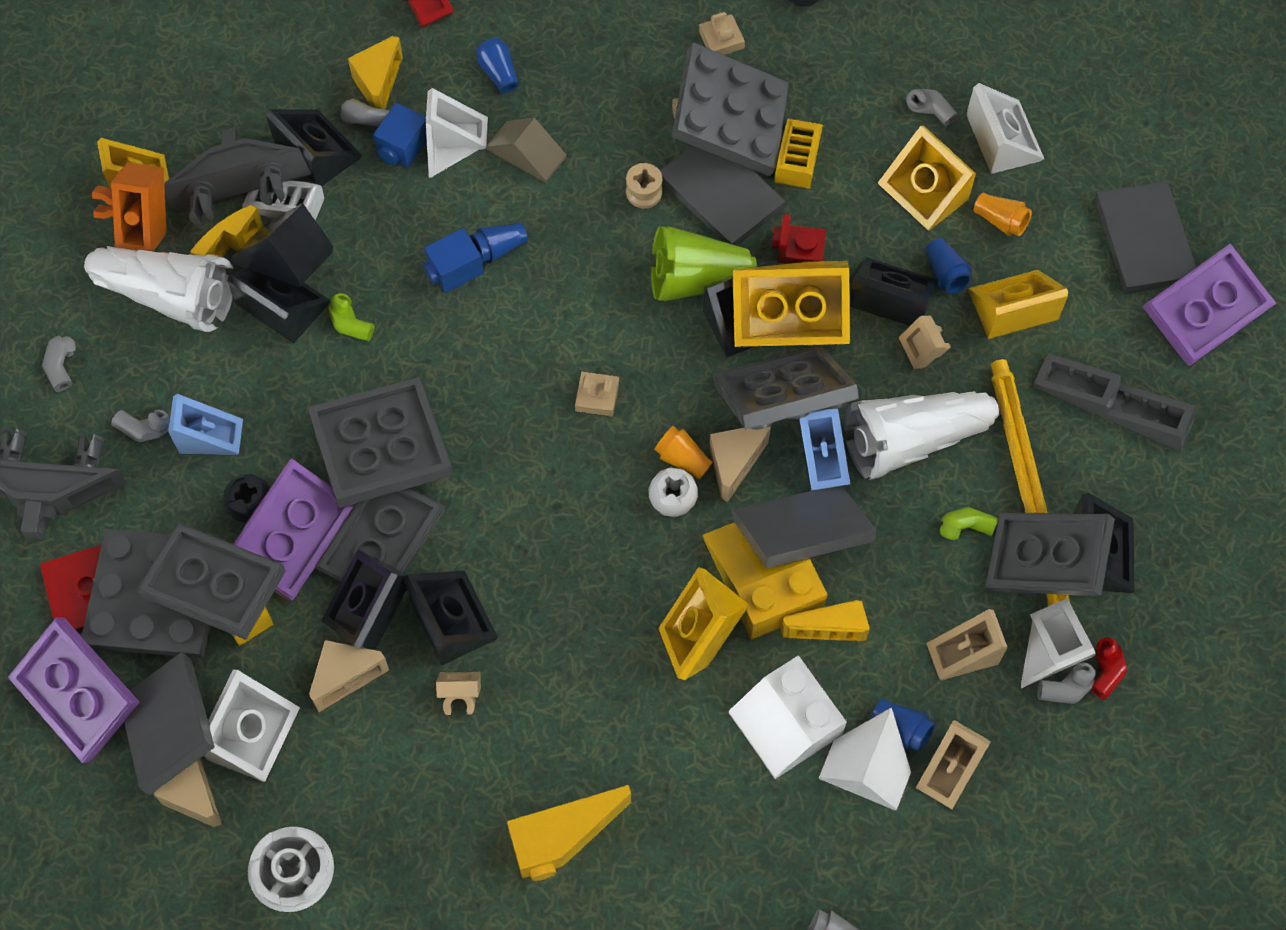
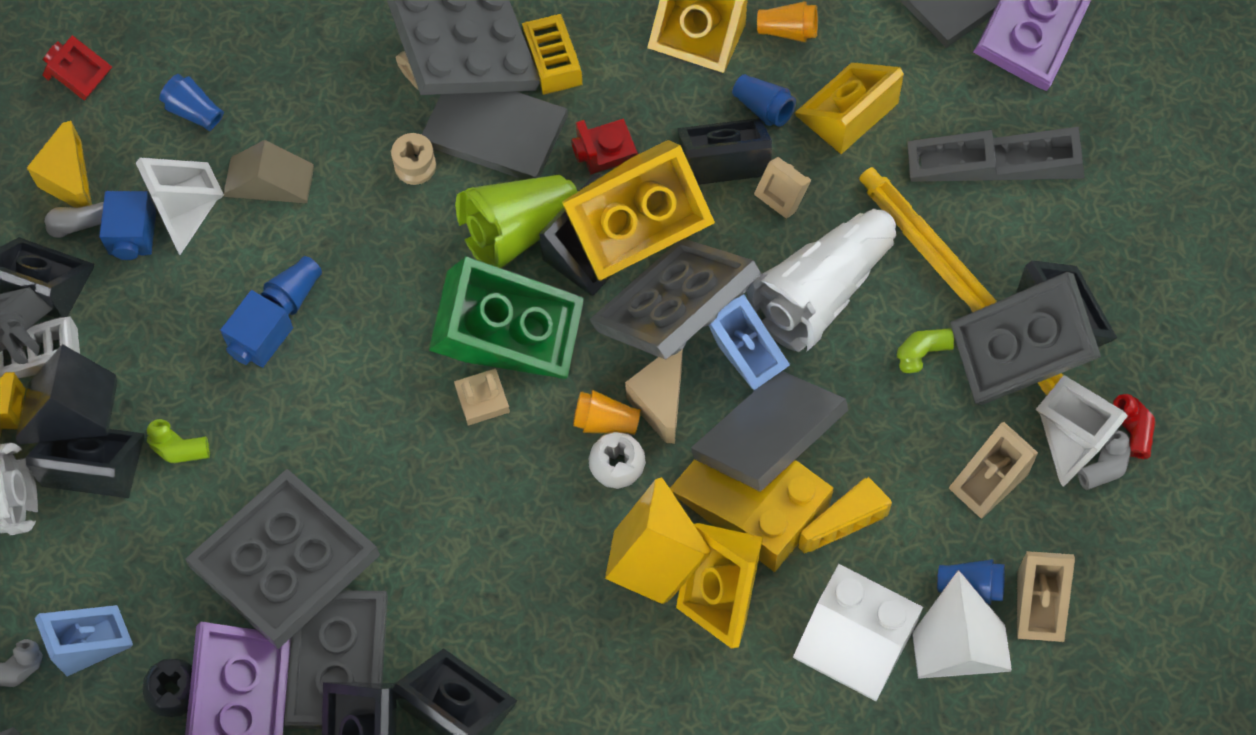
camera: 25 degrees left, 0 degrees up
(647, 344) = (505, 320): none -> green slope
(663, 572) = (656, 546): none -> yellow slope

